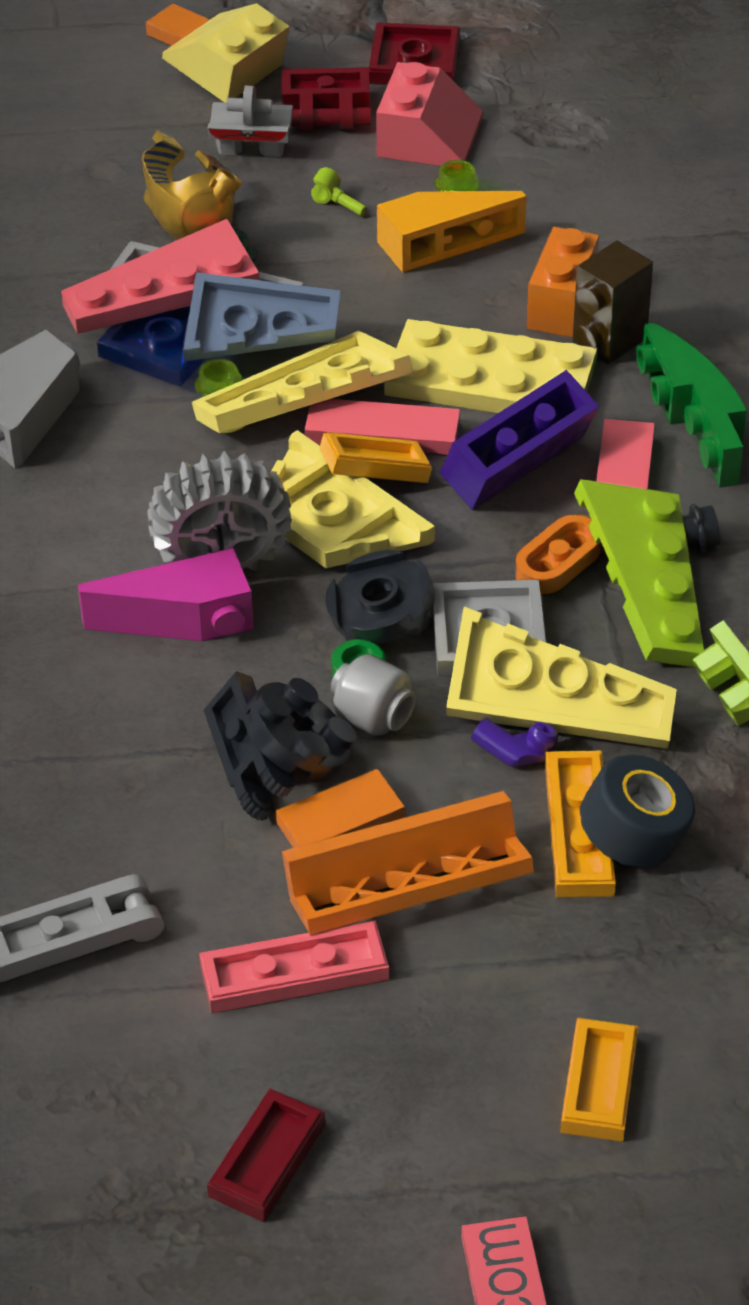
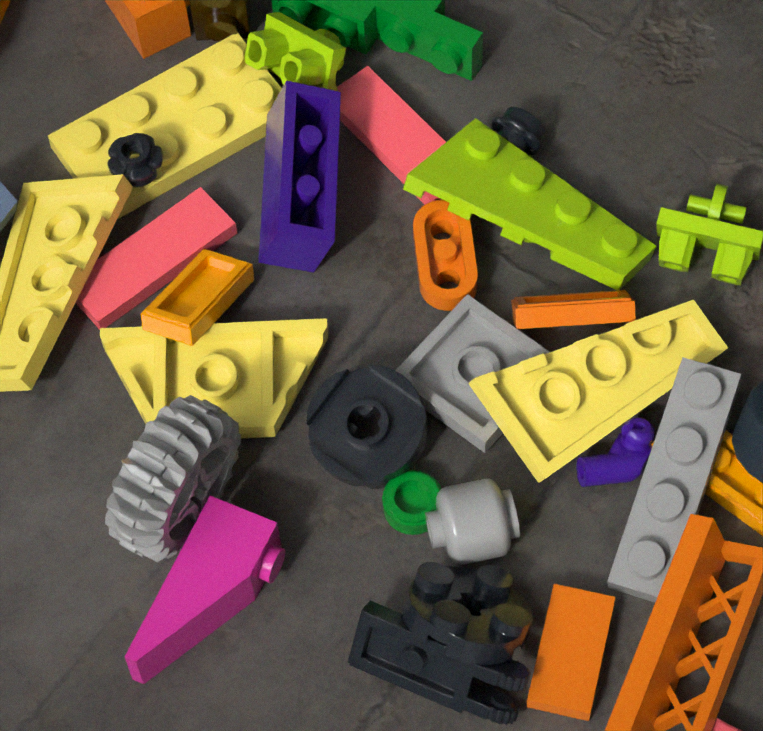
camera: 45 degrees left, 15 degrees up
(432, 358) = (137, 170): none -> black plate
(541, 768) = (674, 476): none -> light grey plate
(594, 638) = (573, 309): none -> orange tile
(611, 380) = (296, 52): none -> lime hips

